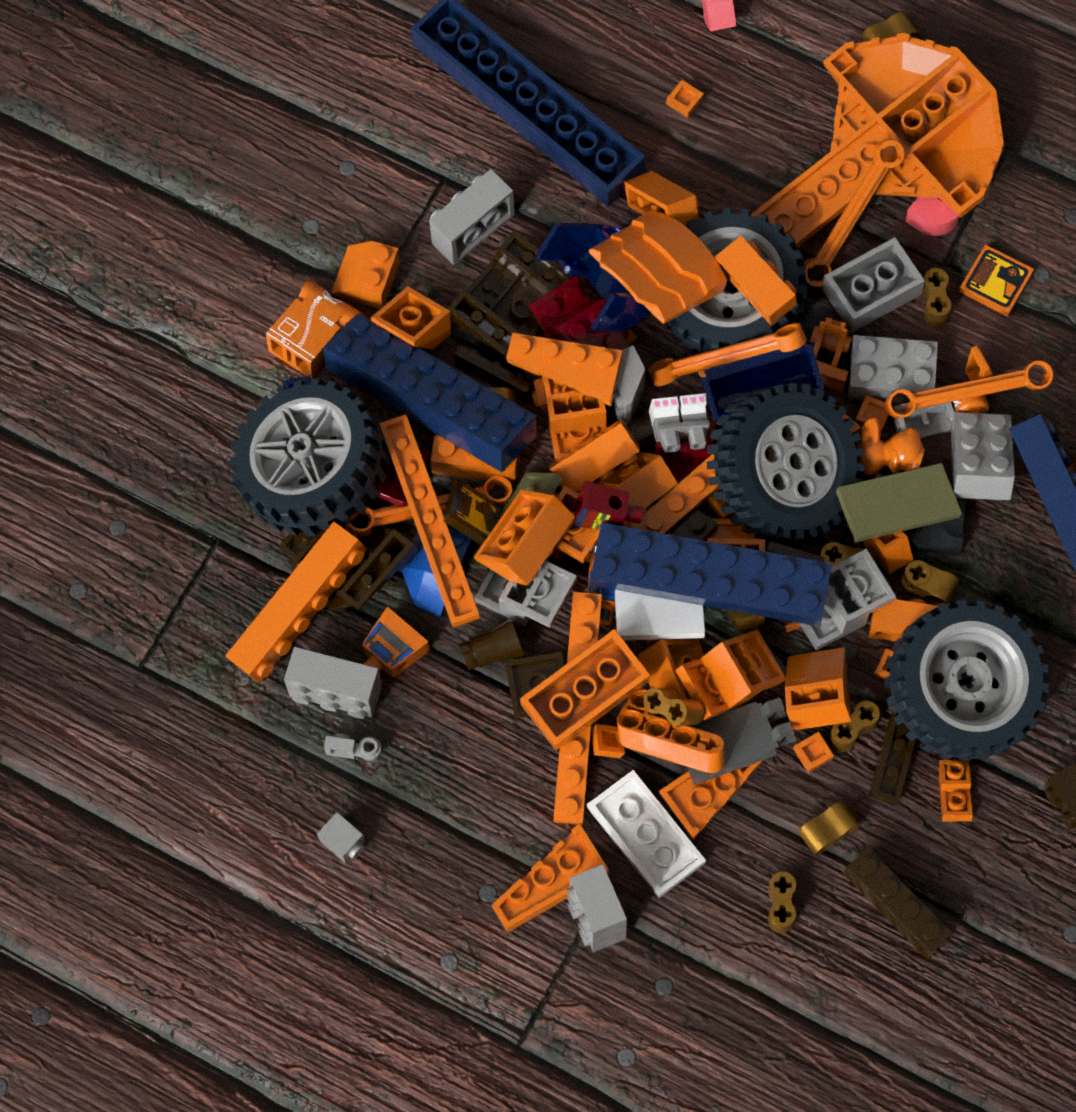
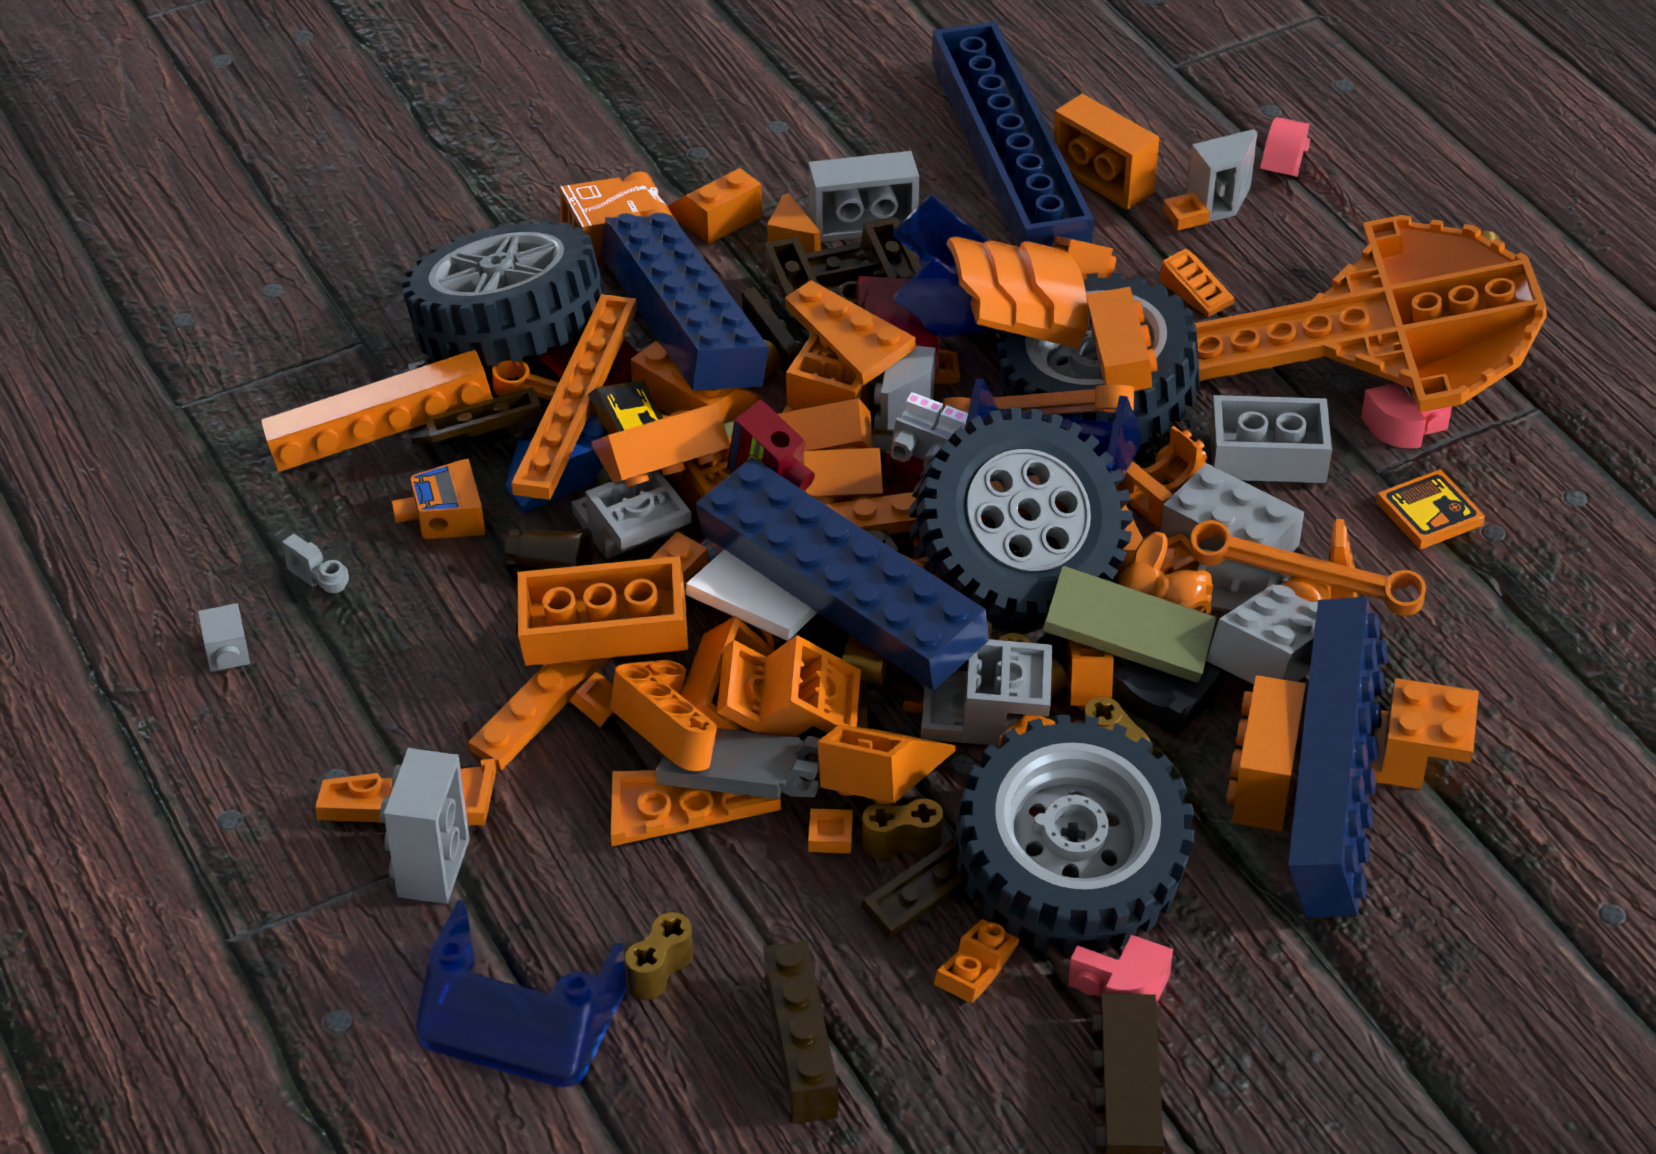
camera: 30 degrees right, 25 degrees down
(333, 683) = (347, 493): light grey brick -> none
(415, 319) = (727, 246): orange slope -> none
(439, 270) = (791, 222): none -> orange slope
(604, 78) = (1107, 150): none -> orange brick
(646, 833) = (561, 809): white plate -> none
(673, 706) = (690, 676): pearl gold axle -> none
(695, 56) = (1222, 172): none -> light grey slope
(727, 152) = (1184, 266): none -> orange slope
(734, 1007) = (513, 1025): none -> clear blue windscreen
(828, 828) = (783, 912): pearl gold axle -> none
(854, 209) = (1299, 354): orange piece -> none
(936, 297) = (1340, 486): pearl gold axle -> none
(1030, 546) = (1267, 752): none -> orange brick
(1051, 755) = (1140, 970): none -> coral brick

